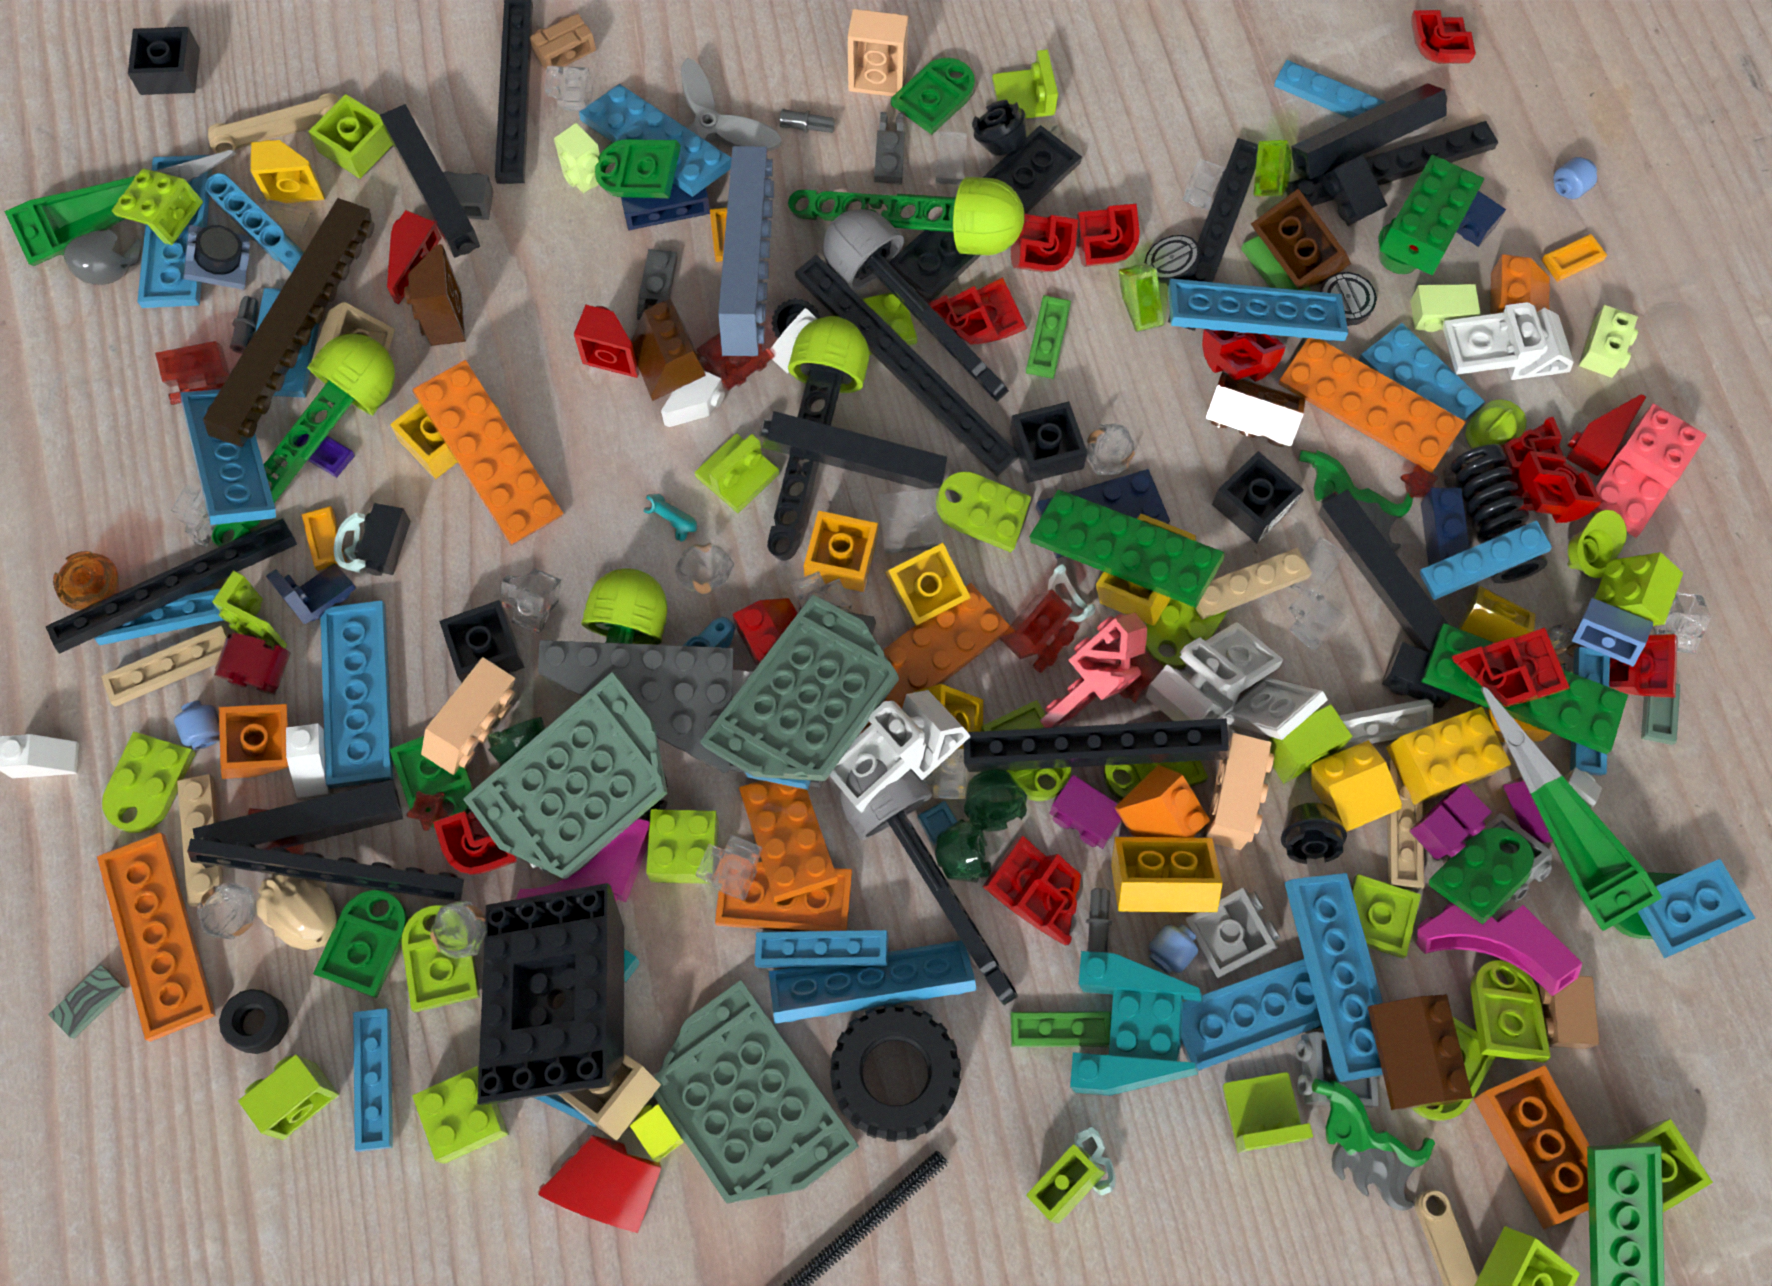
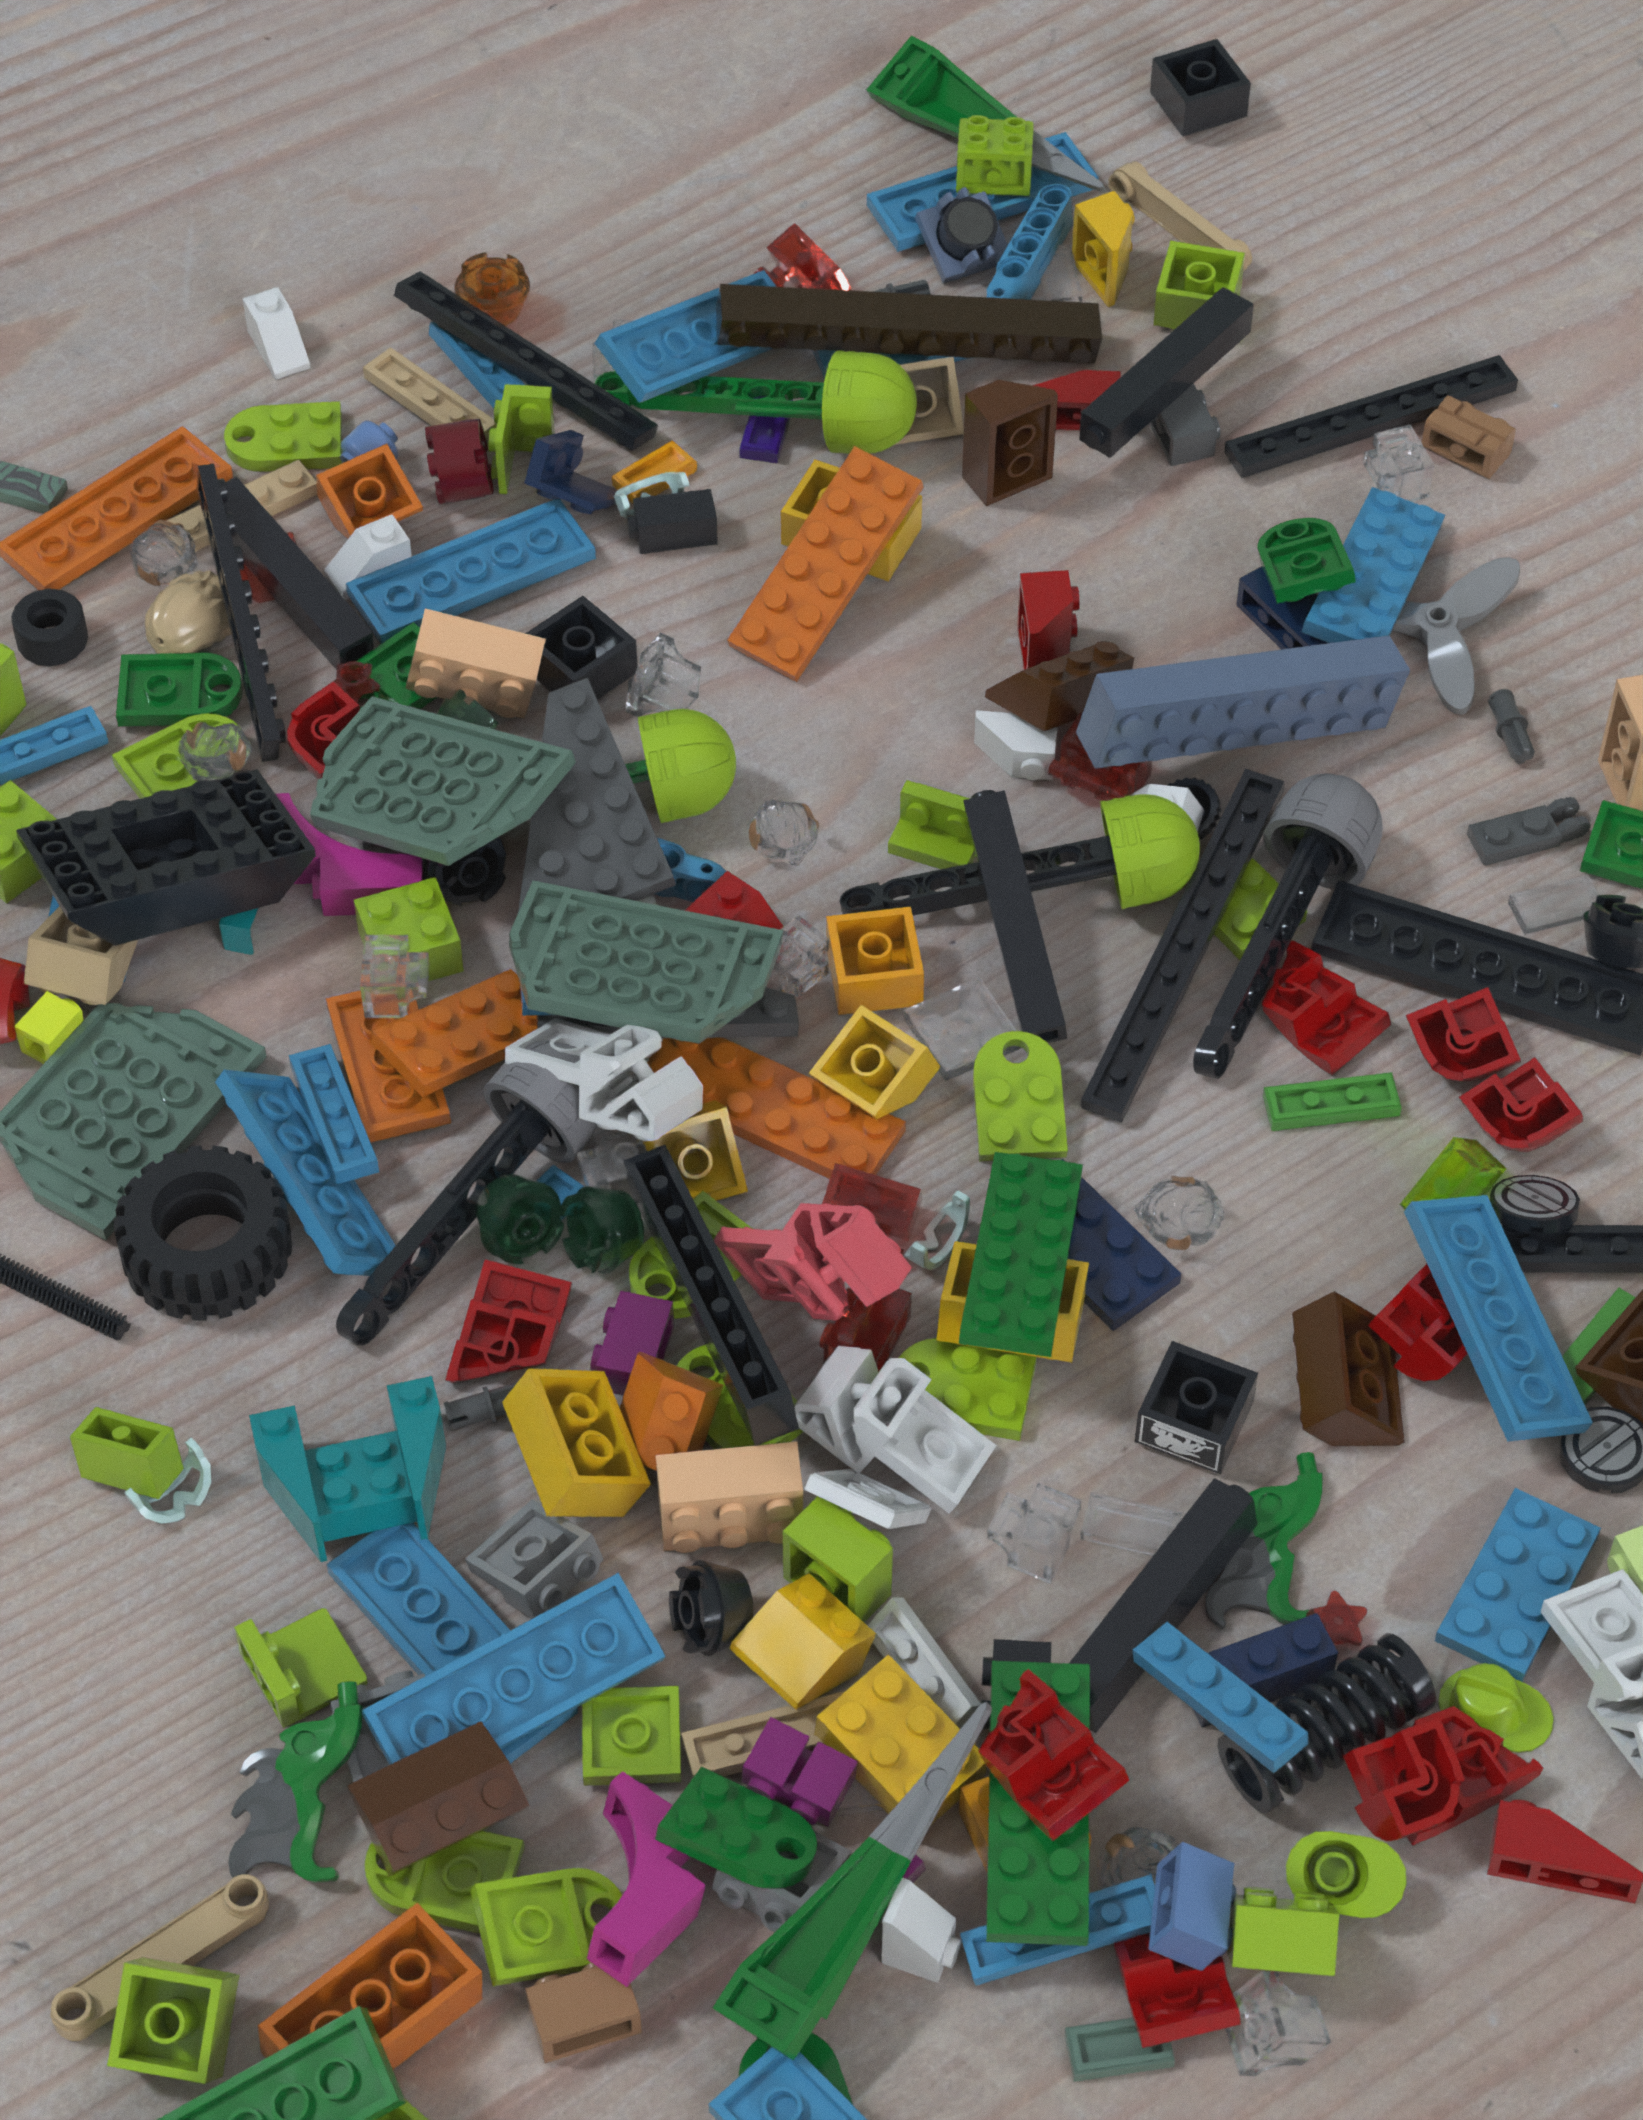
camera: 70 degrees right, 15 degrees down
(93, 259) = (898, 138): dark grey helmet -> none
(578, 157) = (1294, 493): yellowish green brick -> none
(656, 279) = (1174, 649): dark grey hinge -> none
(678, 519) = (843, 787): teal piece -> none
(982, 215) = (1436, 919): piece -> none
(1048, 442) = (1152, 1134): black brick -> none
(1060, 1029) = (327, 1396): bright green tile -> none
(1173, 948) = (484, 1495): medium blue head -> none
(1253, 582) = (1057, 1436): tan plate -> none
(1372, 403) = (1434, 1521): orange plate -> none
(1496, 617) = (1164, 1773): yellow slope -> none
(1647, 467) = (1510, 1916): coral piece -> none

